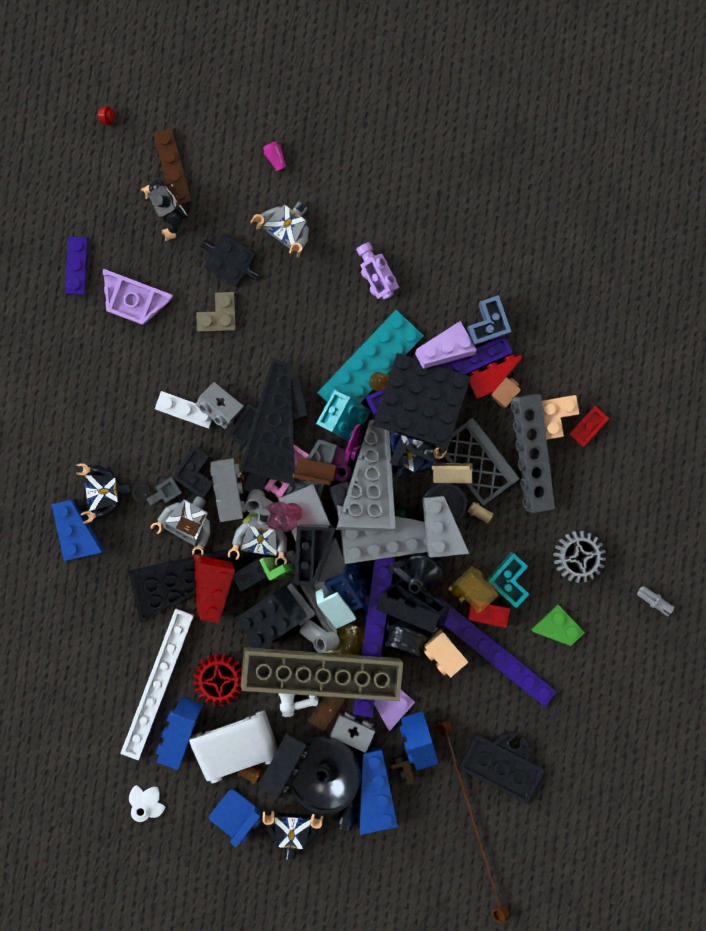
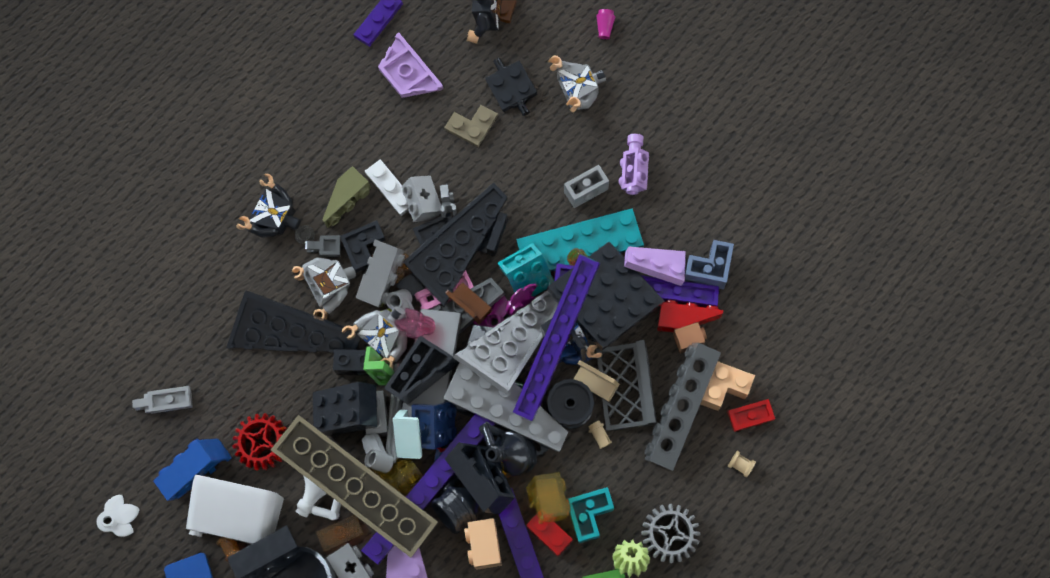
camera: 40 degrees right, 15 degrees down
(74, 536) = (222, 237): blue wedge -> none
(120, 693) = (165, 400): none -> light grey hinge
(152, 436) = (347, 192): none -> olive slope
(157, 684) = (202, 412): white plate -> none
(212, 586) = (310, 349): red wedge -> none
(241, 394) = (447, 199): none -> dark grey plate
(348, 314) = (586, 186): none -> light grey brick
(409, 464) = (556, 337): none -> dark purple plate
(441, 529) = (550, 421): light grey wedge -> none
(561, 587) = (631, 558): none -> yellowish green gear
(602, 469) = (741, 464): none -> tan bush

